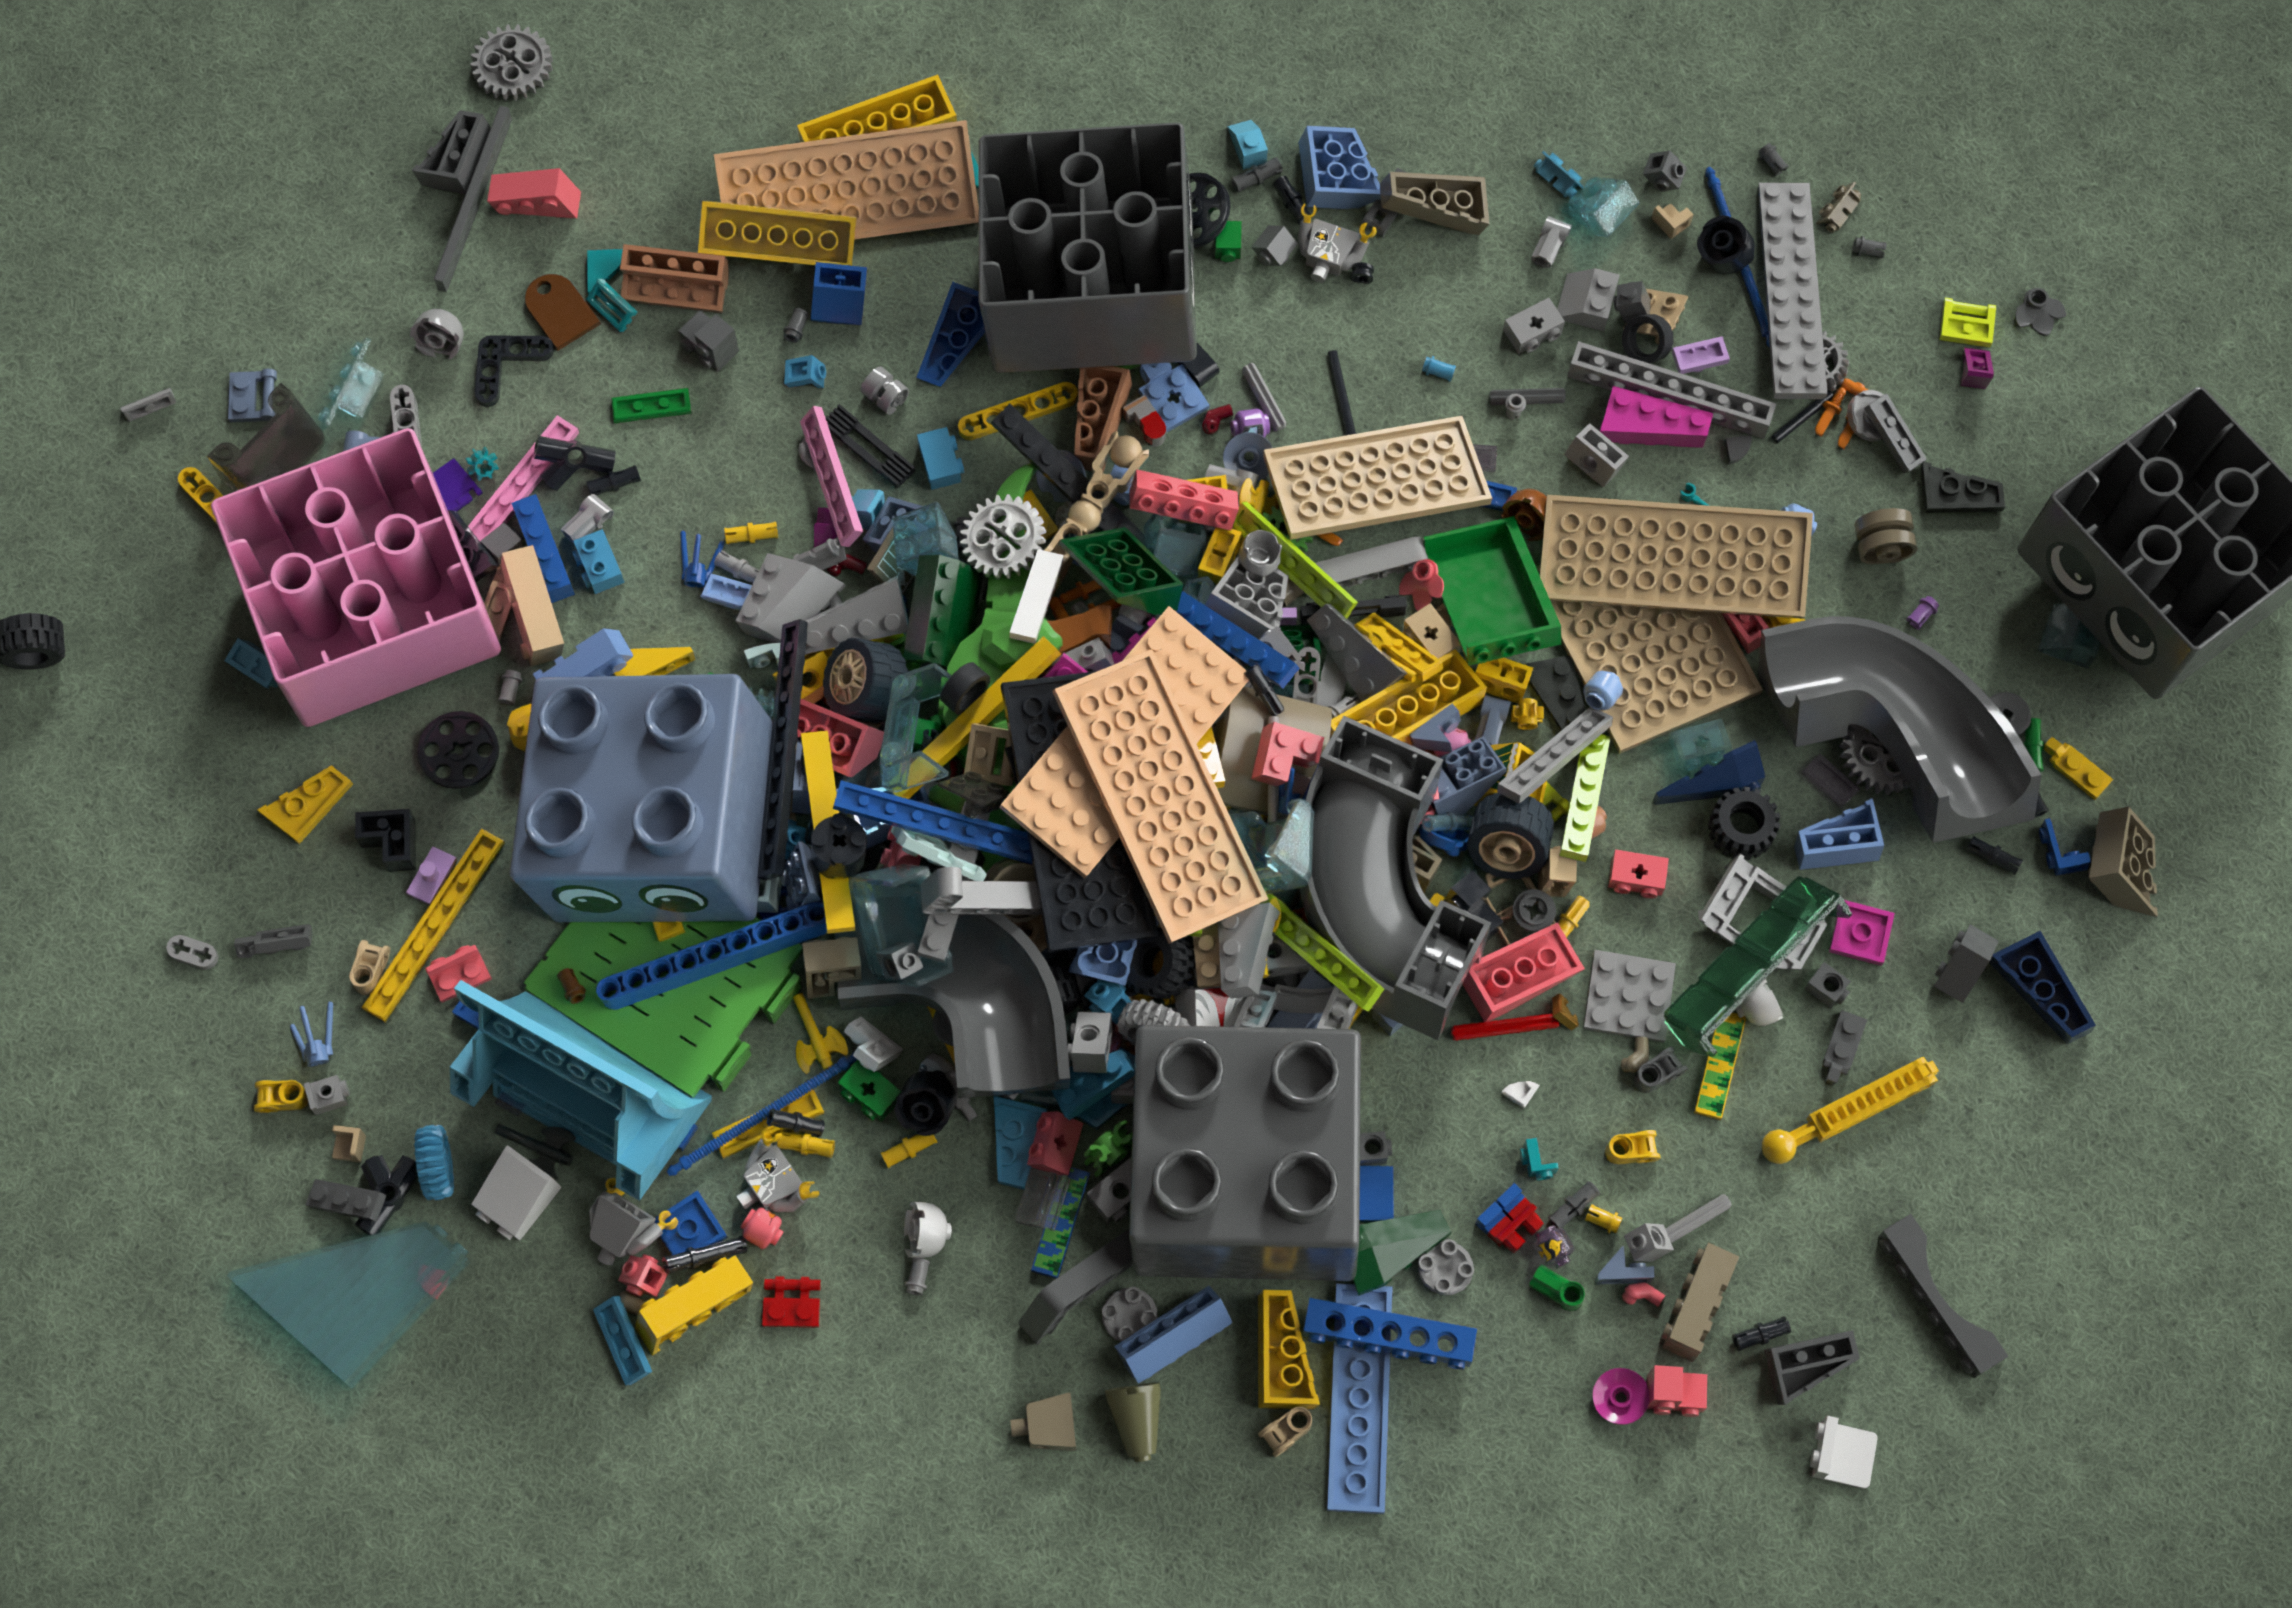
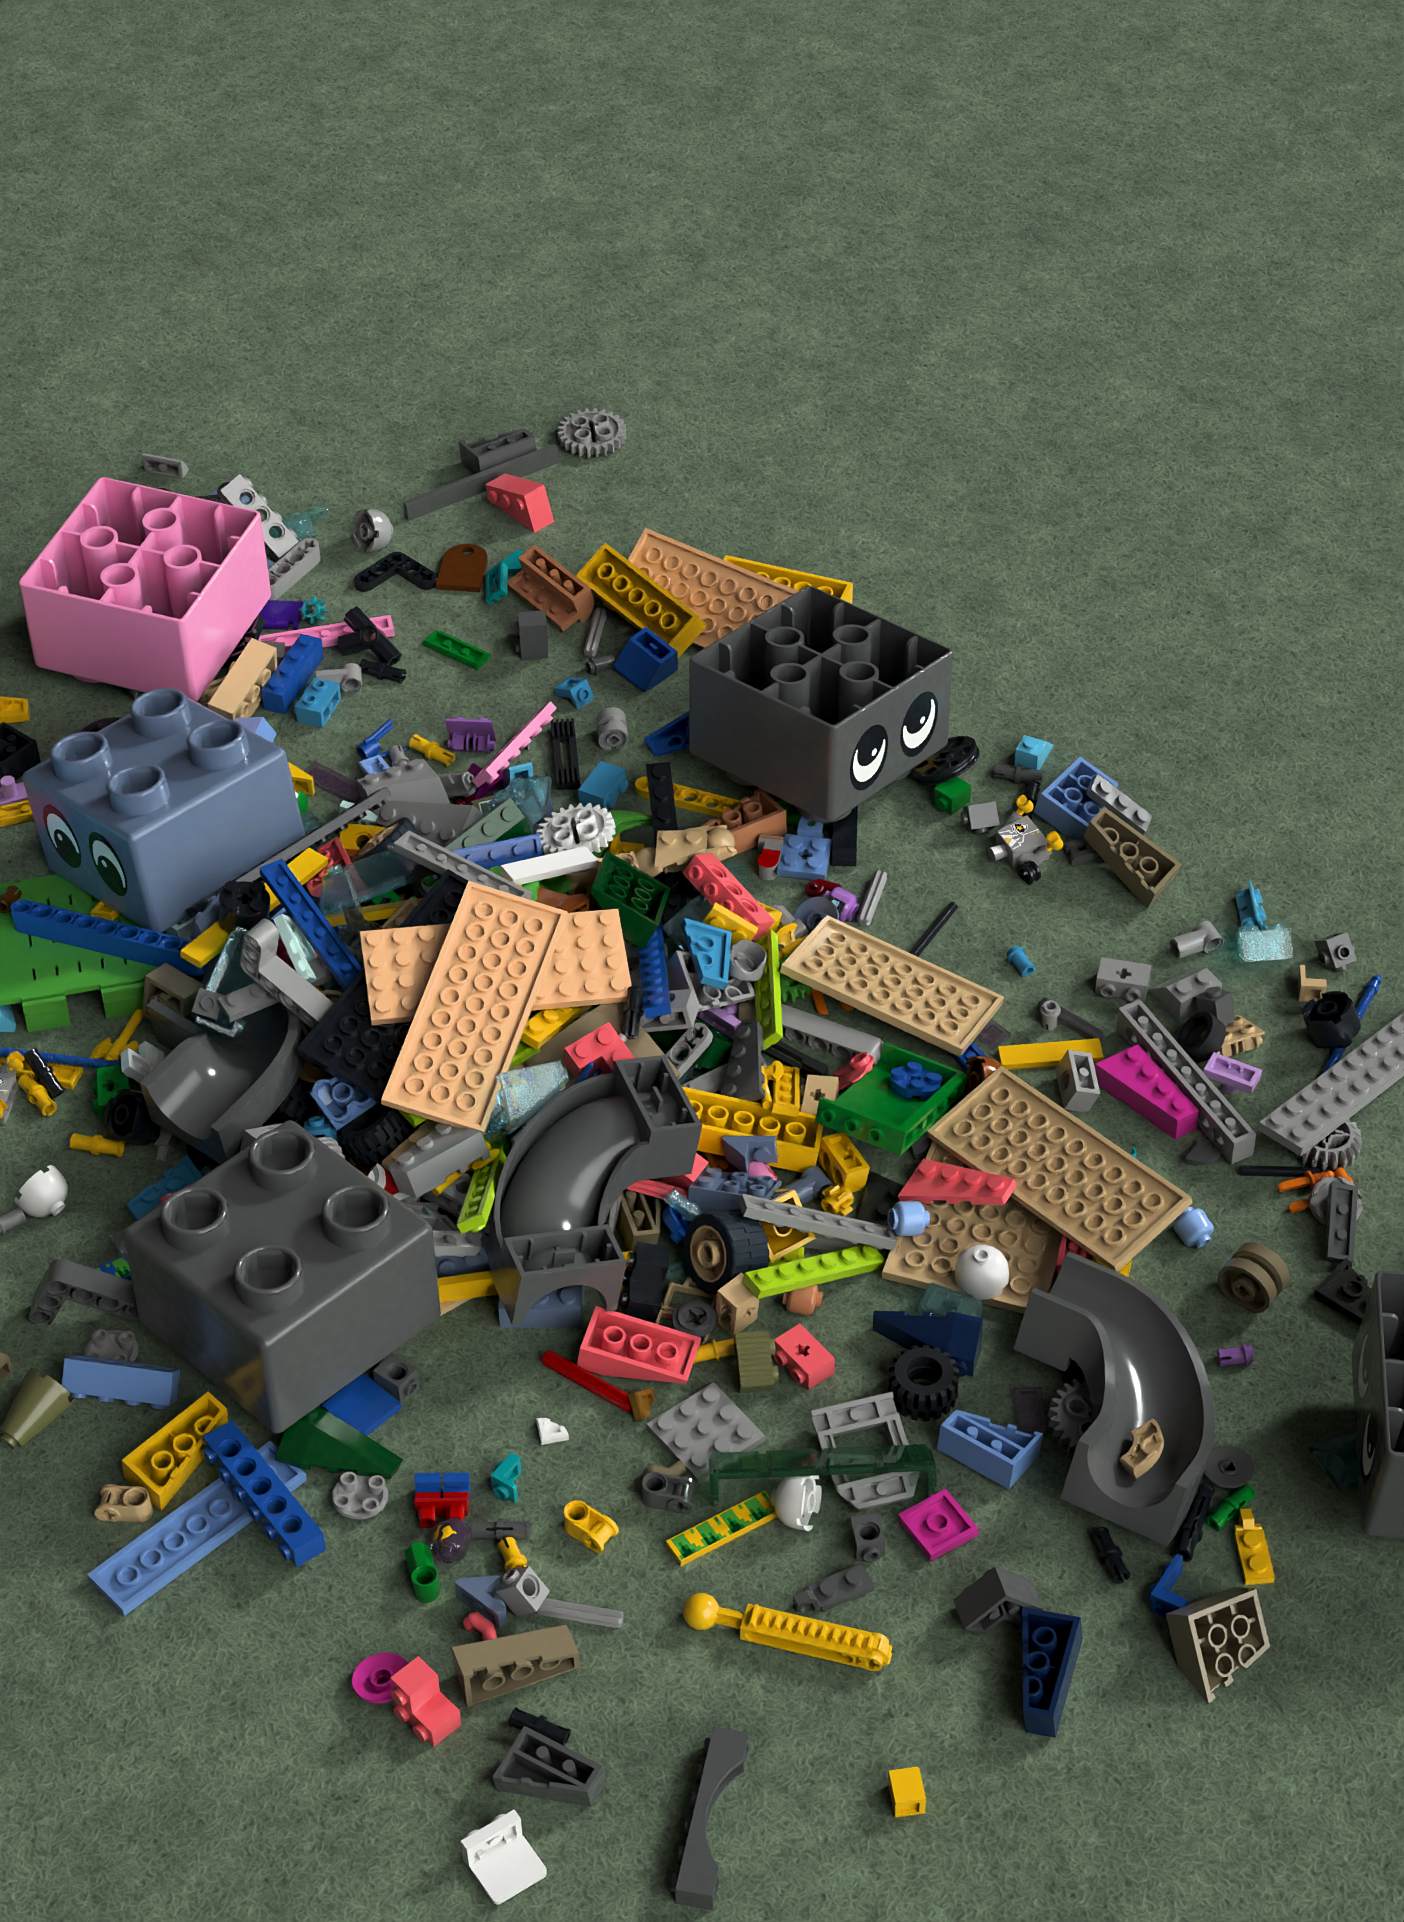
camera: 45 degrees right, 25 degrees down
(297, 404) = (243, 486): none -> brick
(703, 633) = (334, 782): none -> clear purple tile
(753, 292) = (595, 632): none -> light grey axle
(783, 484) = (465, 729): none -> medium lavender hinge
(964, 616) = (502, 851): none -> tile
(1000, 669) = (441, 859): none -> light grey plate
(1108, 487) = (679, 847): none -> tan wing
(1213, 535) = (725, 919): none -> yellow wing
(1235, 571) = (709, 952): none -> dark azure wing
(1375, 150) = (1118, 803): none -> plate
(1481, 545) = (915, 1081): none -> blue plate
(1543, 442) = (1046, 1053): none -> yellow tile
(1601, 634) = (955, 1184): none -> coral wing
(1614, 909) = (754, 1361): none -> olive brick
(1695, 692) = (982, 1272): none -> white cylinder
(1957, 754) = (1145, 1450): none -> tan tile
(2044, 1162) = (906, 1791): none -> yellow panel

